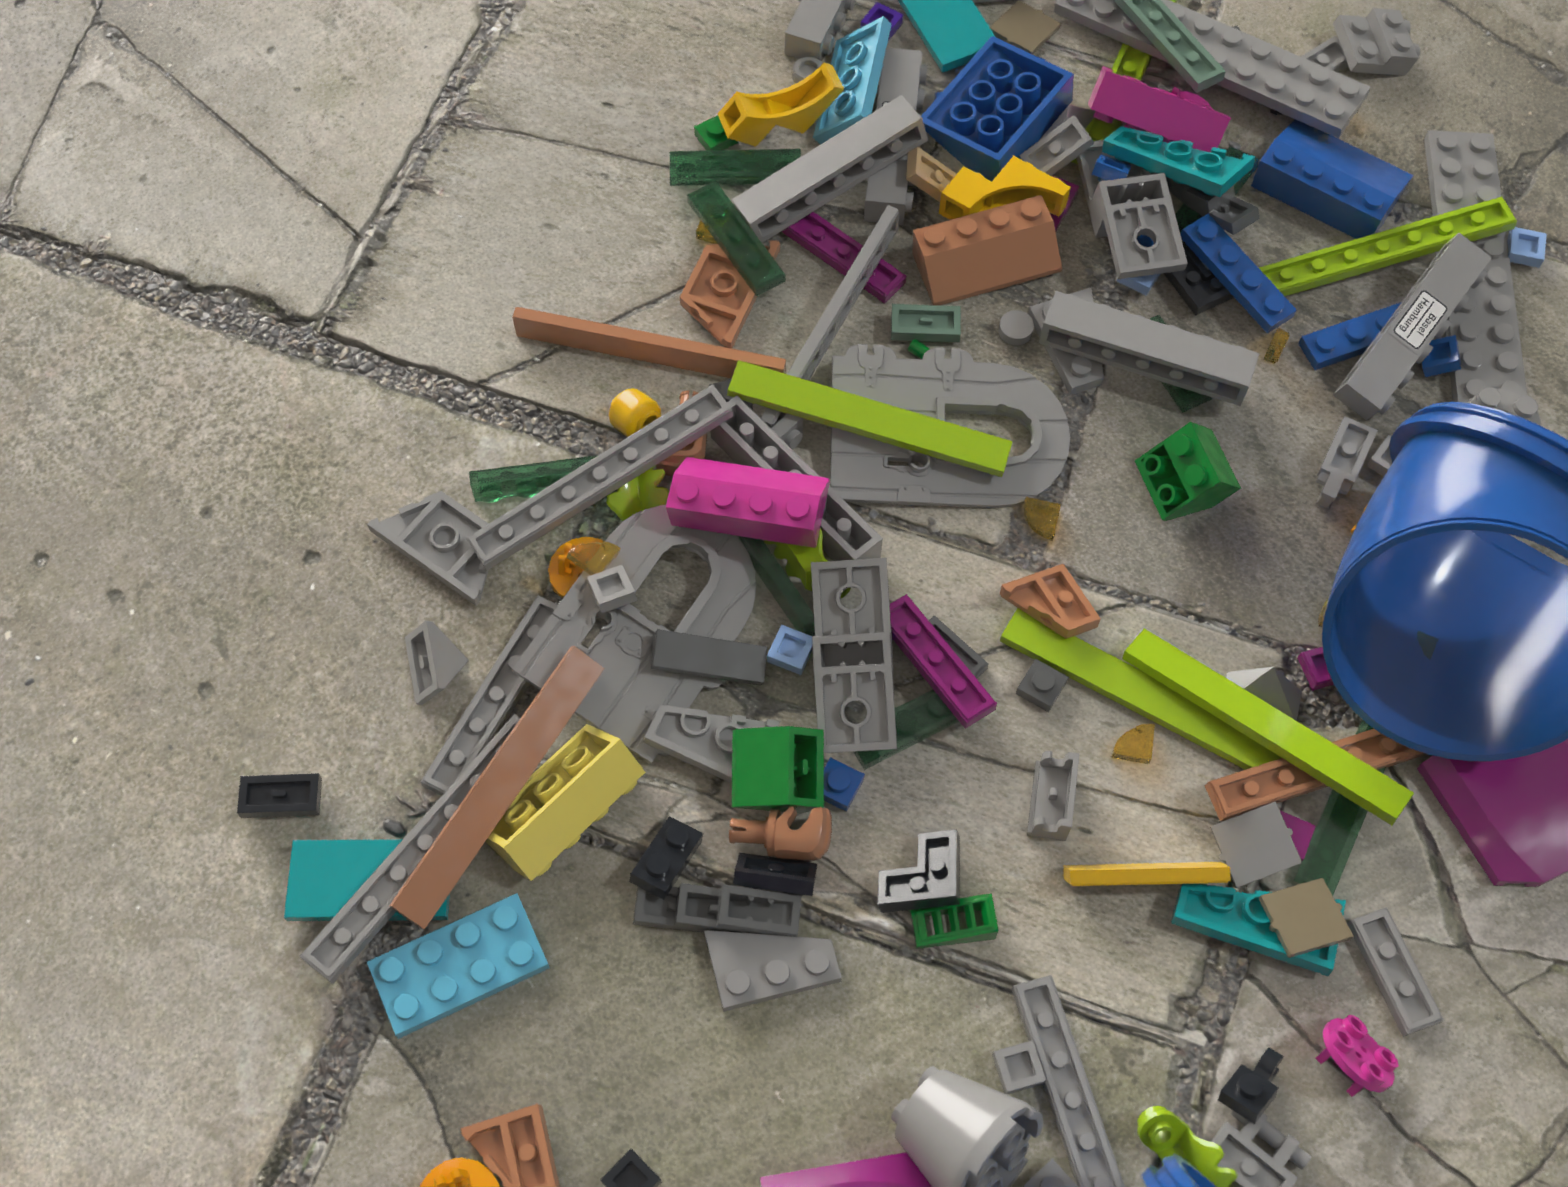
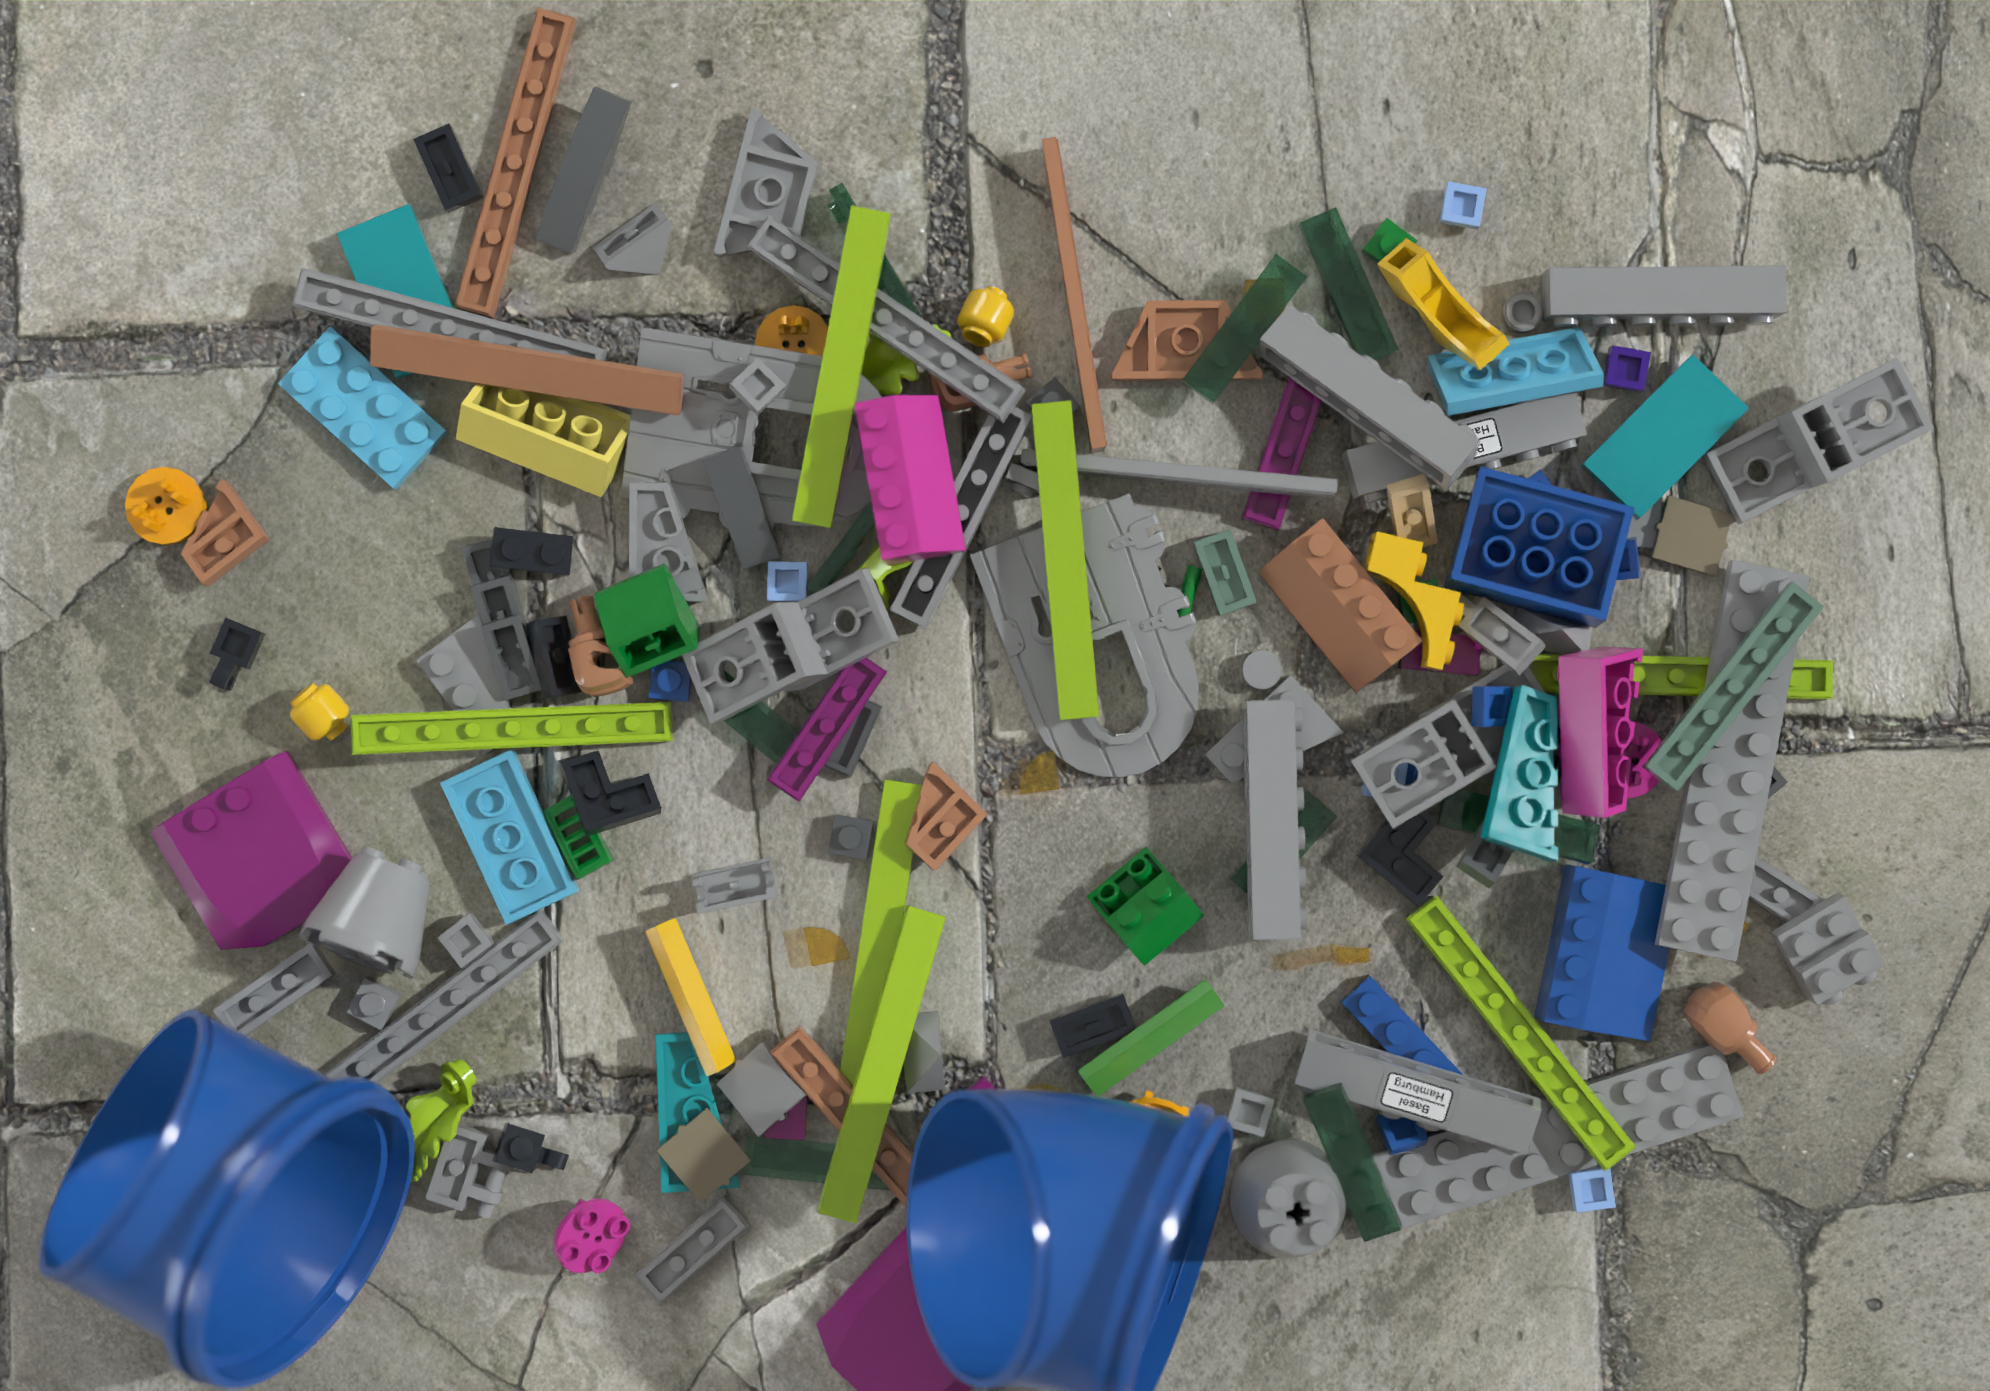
camera: 70 degrees right, 25 degrees up
(306, 739) = (515, 163): none -> nougat tile
(346, 679) = (583, 169): none -> dark grey slope
(490, 704) = (623, 318): light grey tile -> none
(593, 556) = (787, 353): clear yellow tile -> none
(629, 519) = (841, 366): none -> lime tile
(709, 77) = (1462, 205): none -> light blue plate
(735, 1122) = (319, 712): none -> yellow head
(825, 943) = (511, 728): none -> lime tile
(931, 985) = (509, 836): none -> medium azure plate
(1238, 273) = (1417, 885): blue plate -> none
(1280, 550) = (1092, 1025): none -> black plate
(1305, 508) = (1151, 1038): none -> bright green tile
(1344, 459) = (1230, 1061): light grey hinge -> none
(1414, 118) = (1727, 1024): none -> nougat piece
(1430, 386) = (1352, 1162): none -> clear green plate

